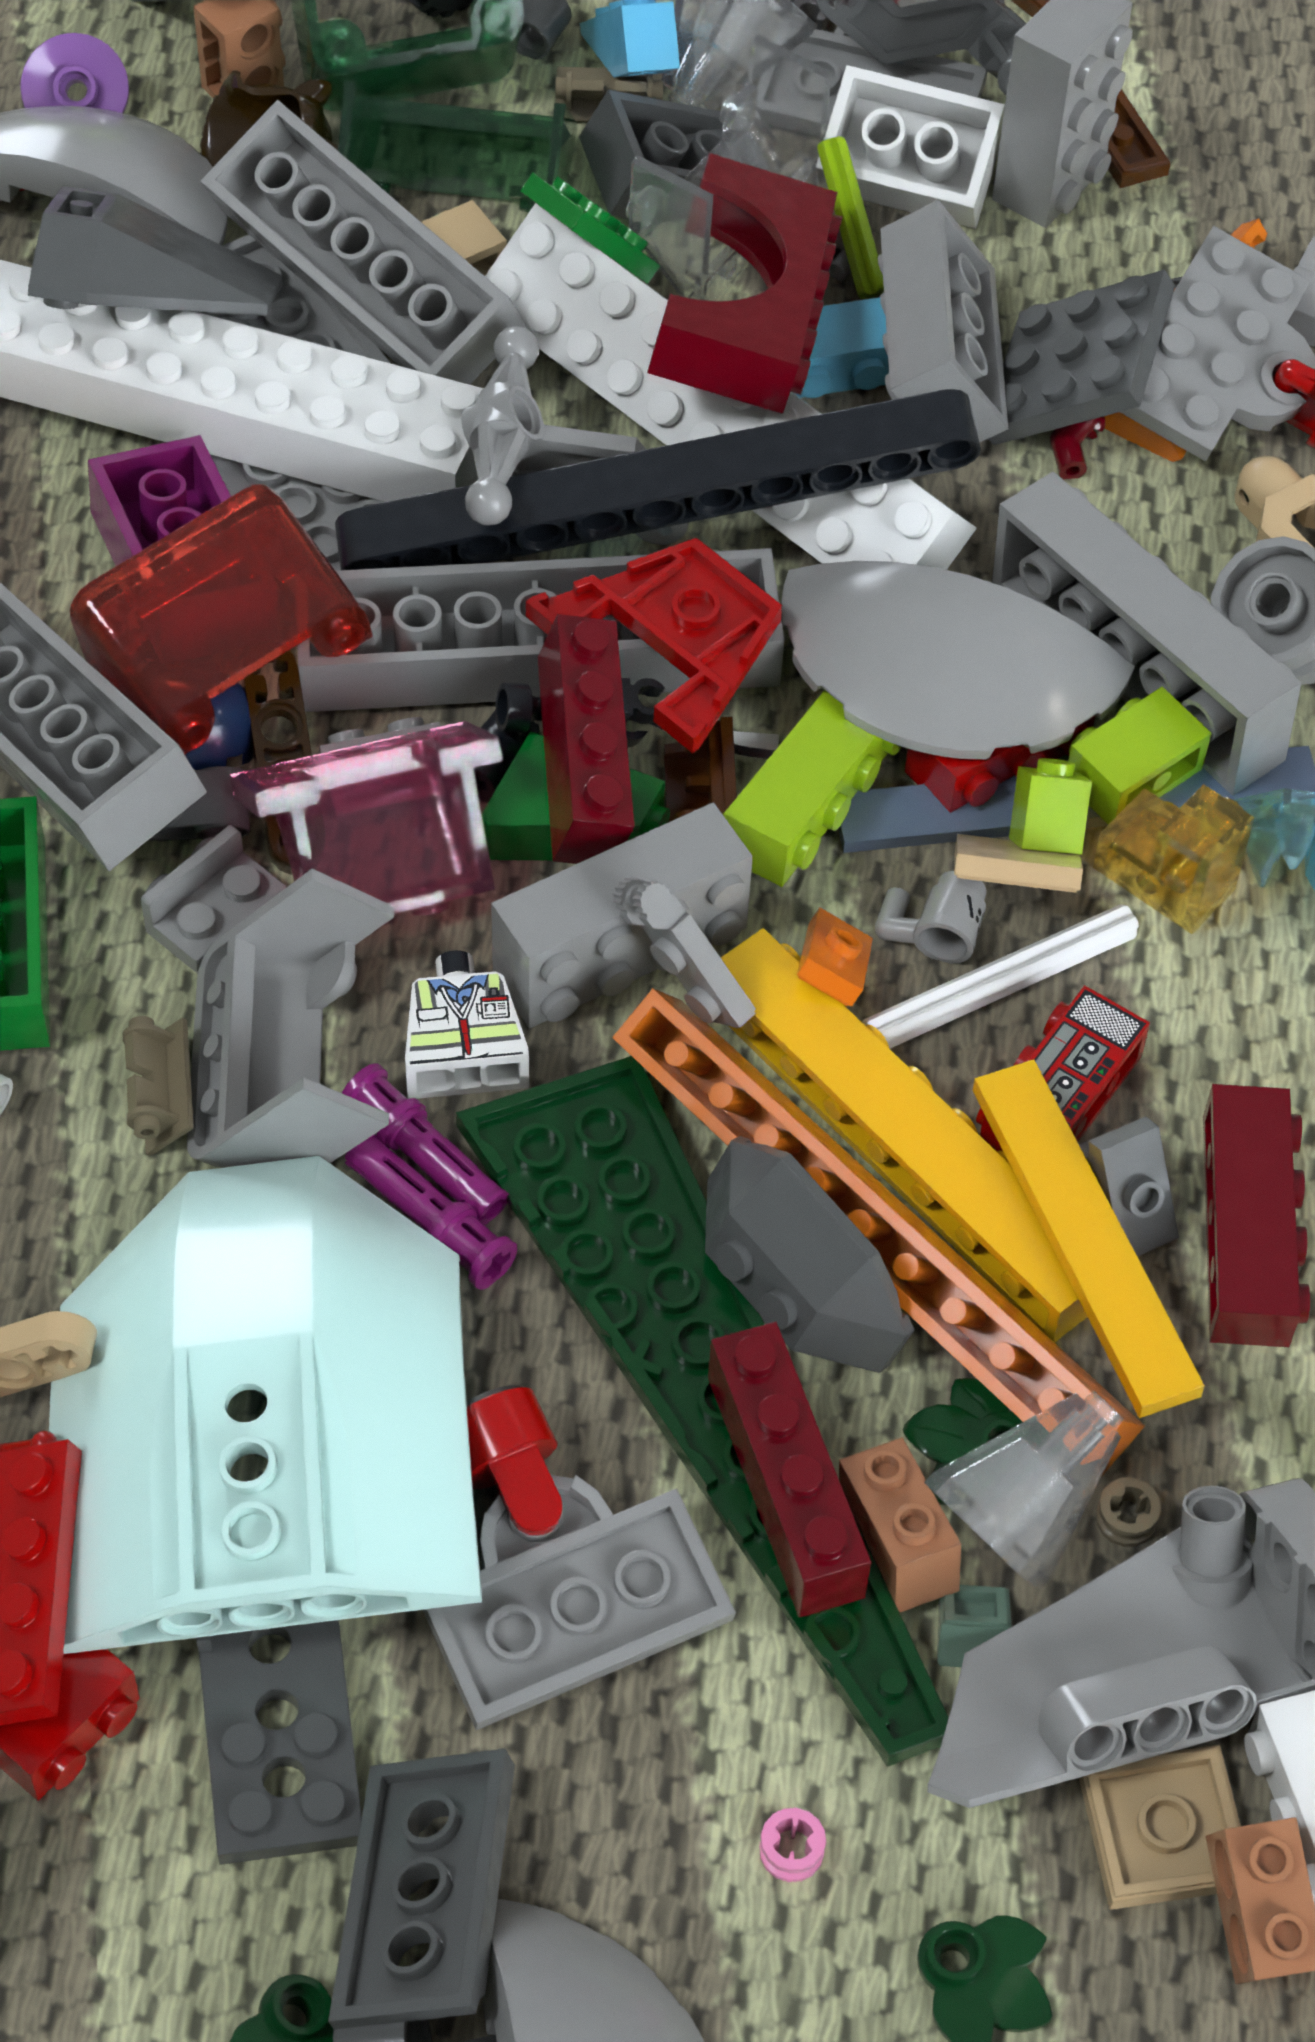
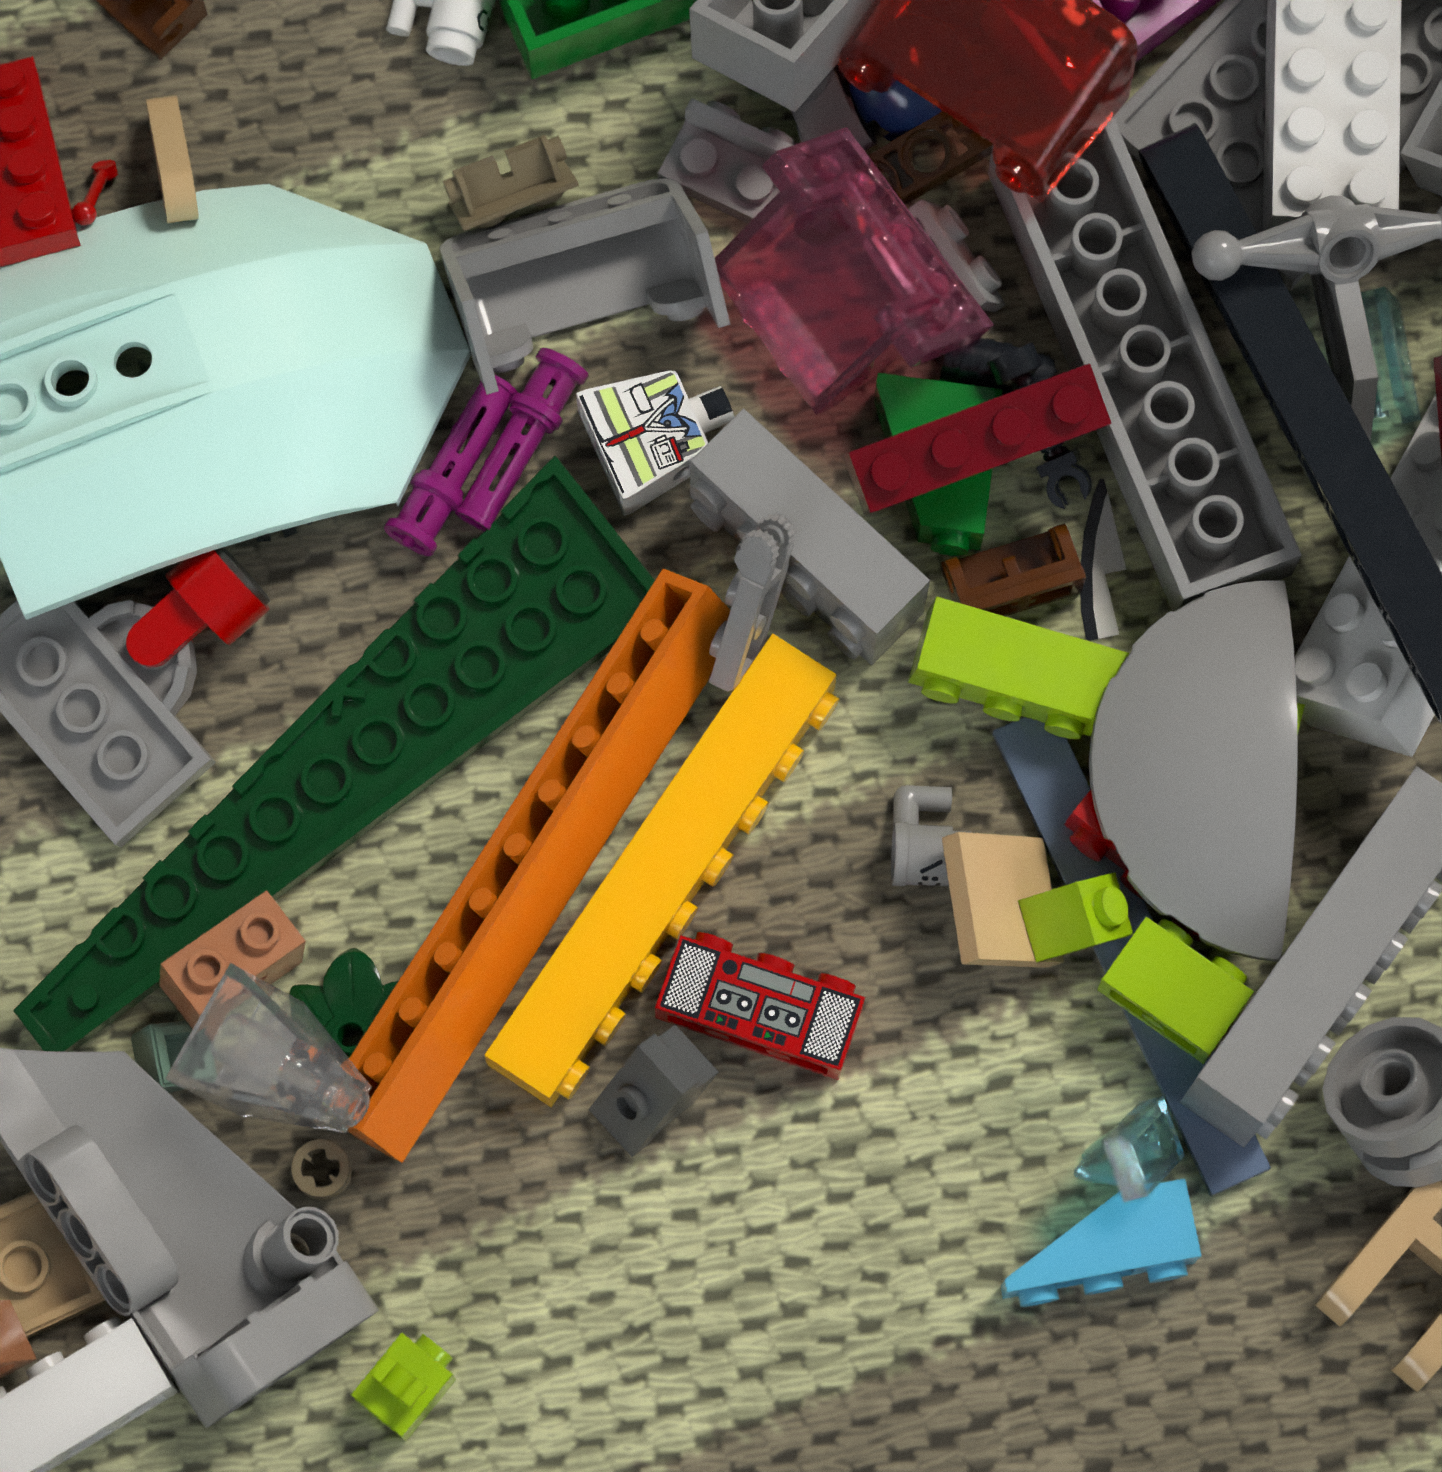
camera: 75 degrees right, 20 degrees up
(691, 613) = (1169, 499): red wing -> none
(788, 1469) = (245, 846): dark red brick -> none
(801, 1259) = (466, 798): dark grey wedge -> none
(835, 957) = (831, 752): orange plate -> none
(1005, 975) = (879, 921): white axle -> none
(1088, 1239) = (567, 1058): yellow tile -> none
(1177, 857) = (1066, 1054): clear yellow brick -> none
(1253, 1216) = (666, 1218): dark red brick -> none

